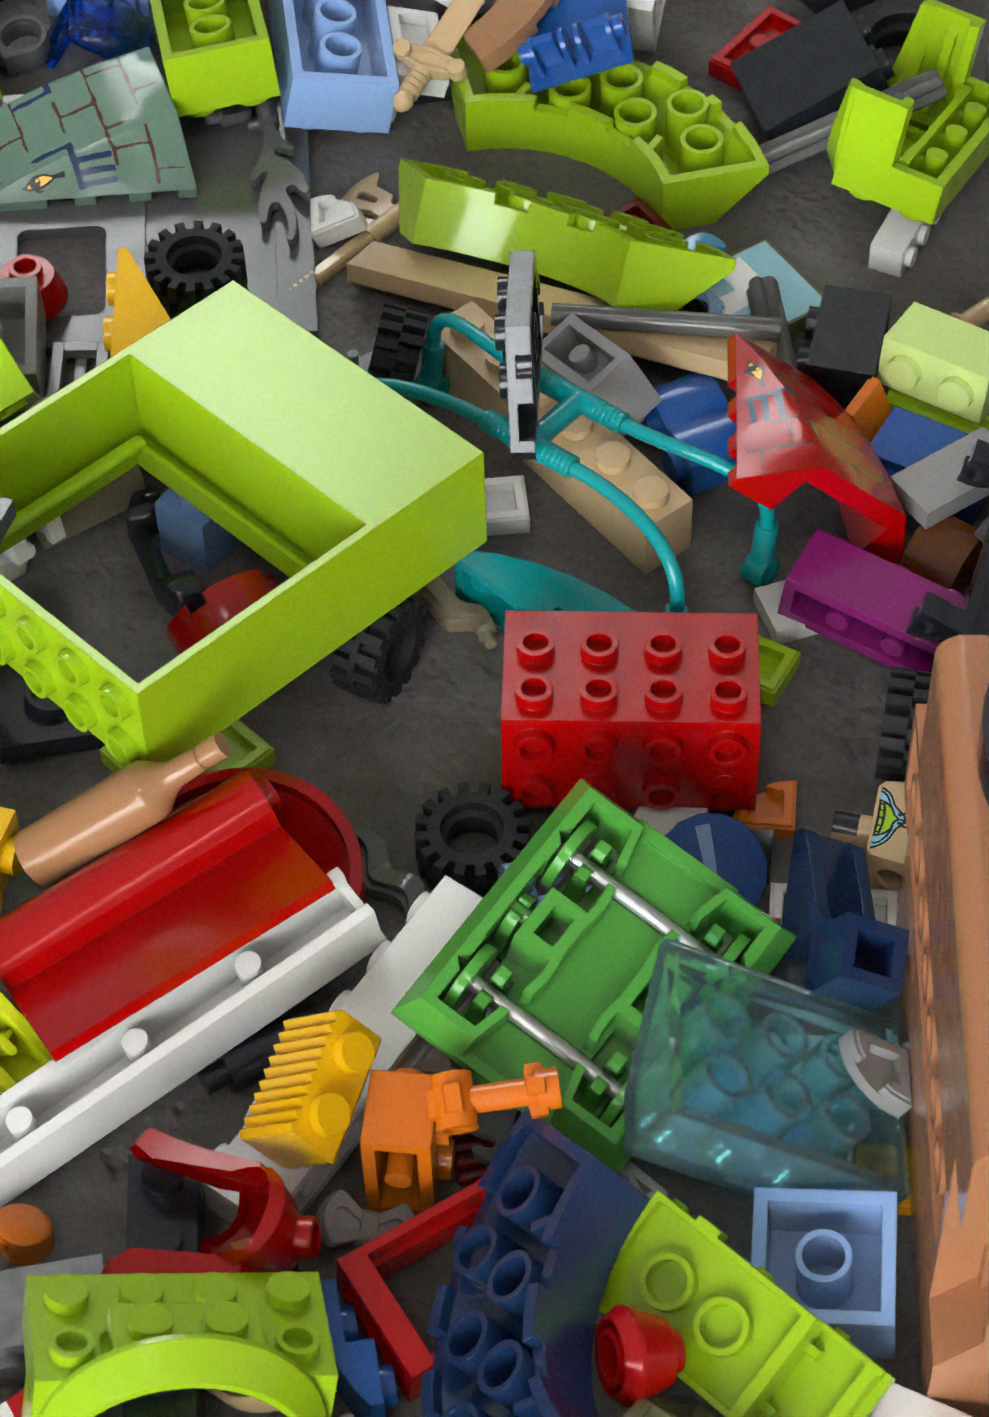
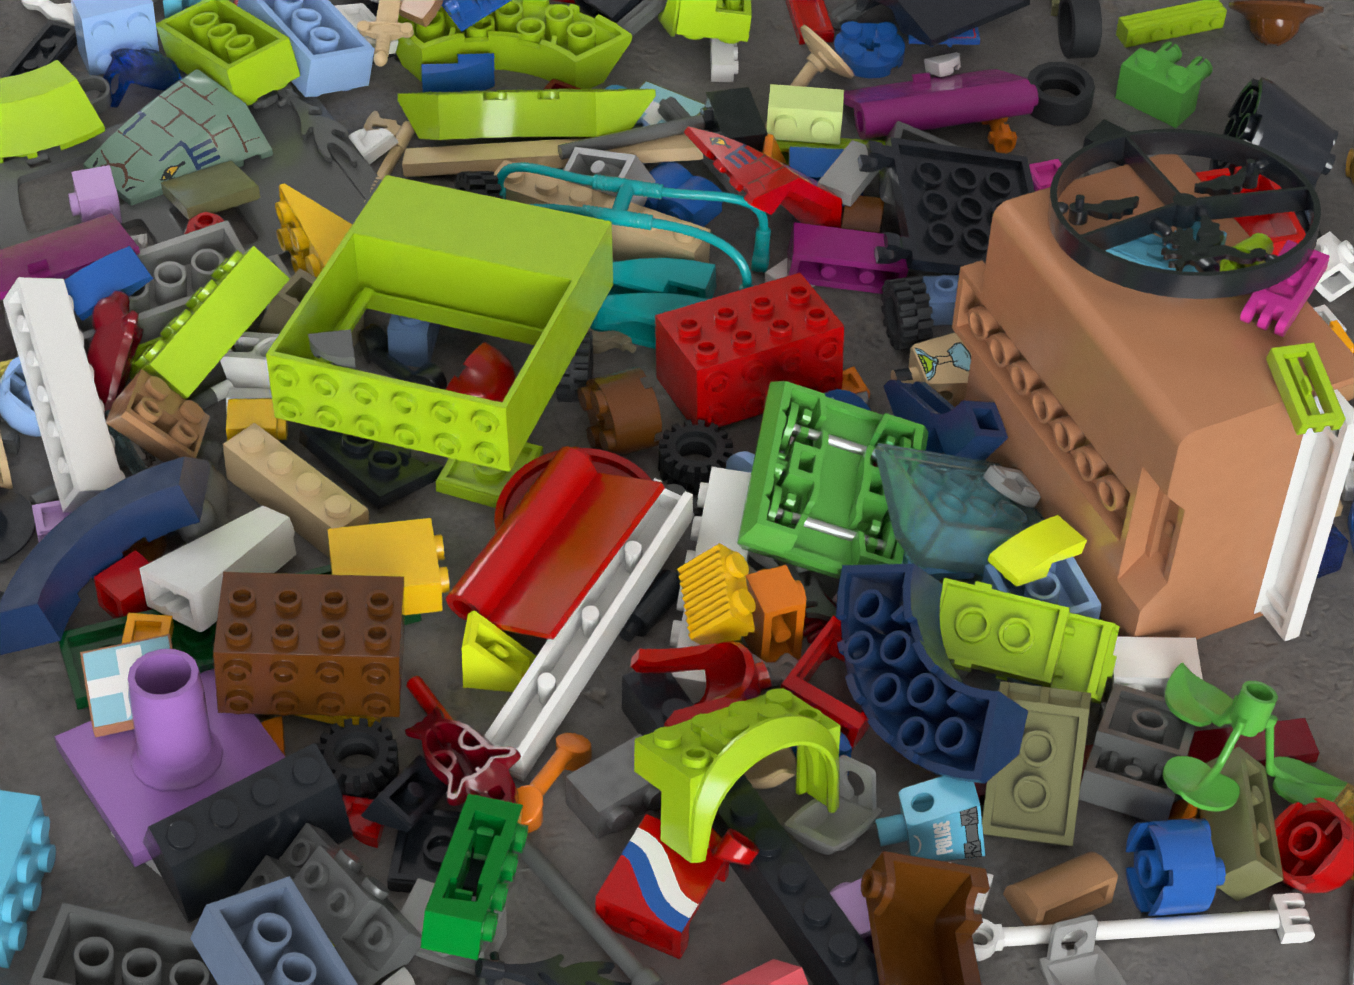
camera: 30 degrees left, 5 degrees down
(73, 223) = (210, 190): none -> olive tile
(110, 812) = (498, 495): medium nougat piece -> none
(191, 250) = (315, 181): black tyre -> none
(393, 740) = (621, 412): none -> reddish brown brick
(456, 1101) = (809, 572): orange bar -> none
(520, 338) = (592, 158): wing -> none
(522, 157) = (471, 73): none -> blue slope
(583, 550) = (664, 276): none -> teal slope
(637, 1354) = (982, 662): red cone -> none
(822, 1197) = (1033, 550): none -> neon yellow slope

